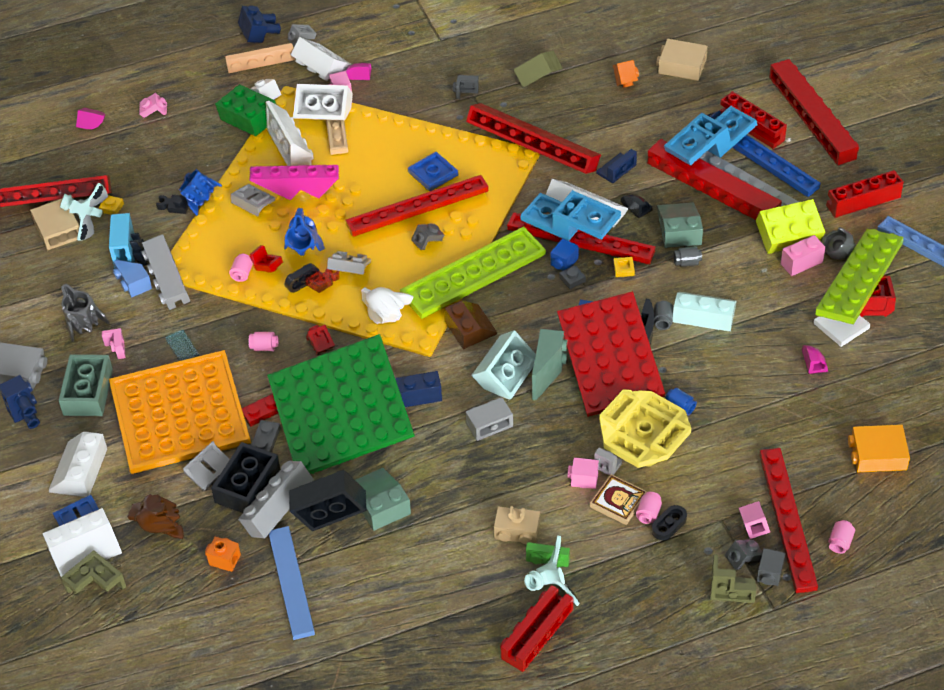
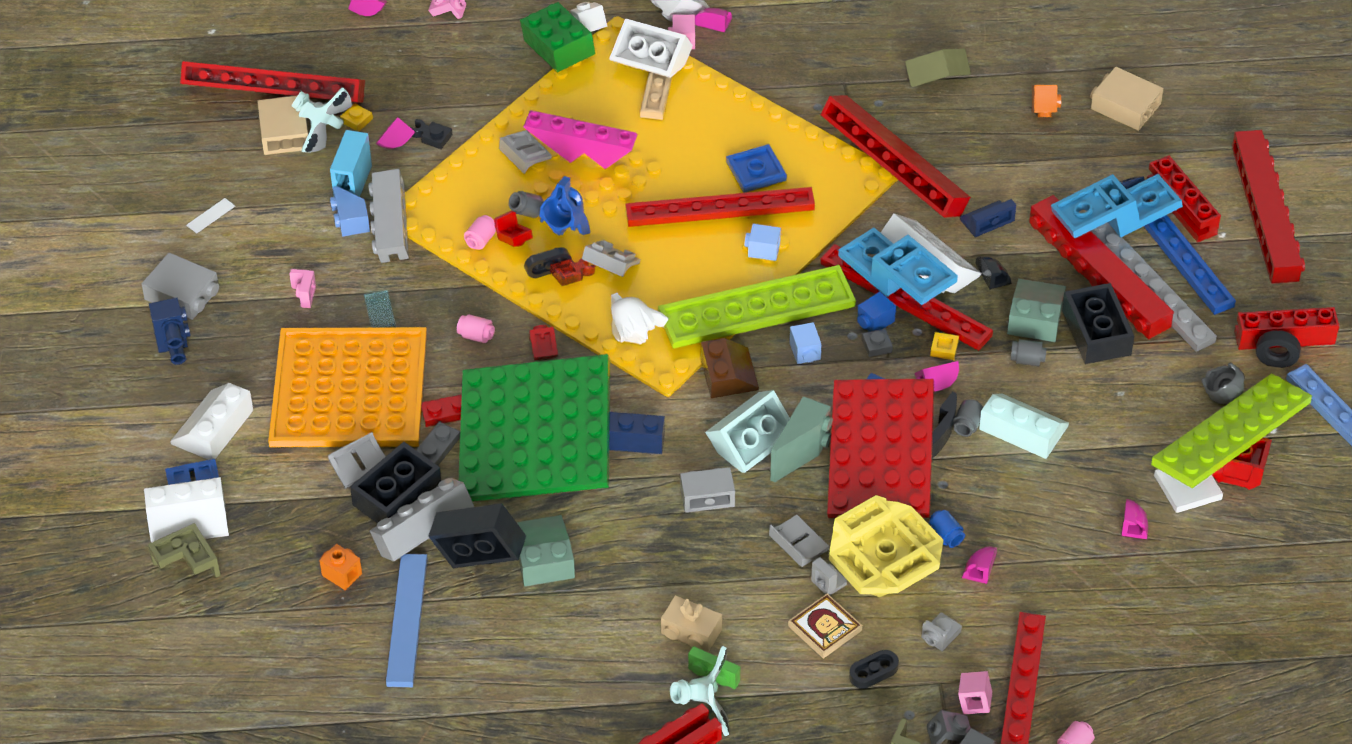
camera: 15 degrees right, 0 degrees up
(20, 306) = (210, 215): none -> white sticker
(78, 312) = (273, 239): flat silver piece -> none
(85, 385) = (251, 329): sand green brick -> none
(137, 247) = (366, 177): black plate -> none
(147, 211) = (395, 135): none -> dark pink brick
(157, 516) = (280, 503): reddish brown piece -> none
(197, 189) = (461, 123): blue piece -> none
(270, 238) = (525, 204): none -> dark grey brick
(287, 136) = (593, 82): white slope -> none
(426, 233) = (717, 244): dark grey bracket -> none
(461, 223) = (763, 242): none -> light blue brick
(466, 84) = (838, 66): dark grey bracket -> none
(520, 290) = (805, 343): none -> light blue brick
(564, 435) = (794, 530): none -> light grey piece
(584, 473) = (795, 583): bright pink brick -> none
(634, 285) = (943, 375): none -> dark pink brick
(649, 507) = (856, 644): bright pink brick -> none
(707, 480) = (940, 631): none -> light grey bracket
(716, 422) = (980, 565): none -> dark pink brick
(730, 223) = (1098, 323): none -> black brick
(789, 225) = (1171, 346): neon yellow brick -> none
(802, 255) = (1173, 387): bright pink brick -> none
(866, 201) = (1278, 338): none -> black tyre
(879, 448) = (1166, 648): light orange brick -> none

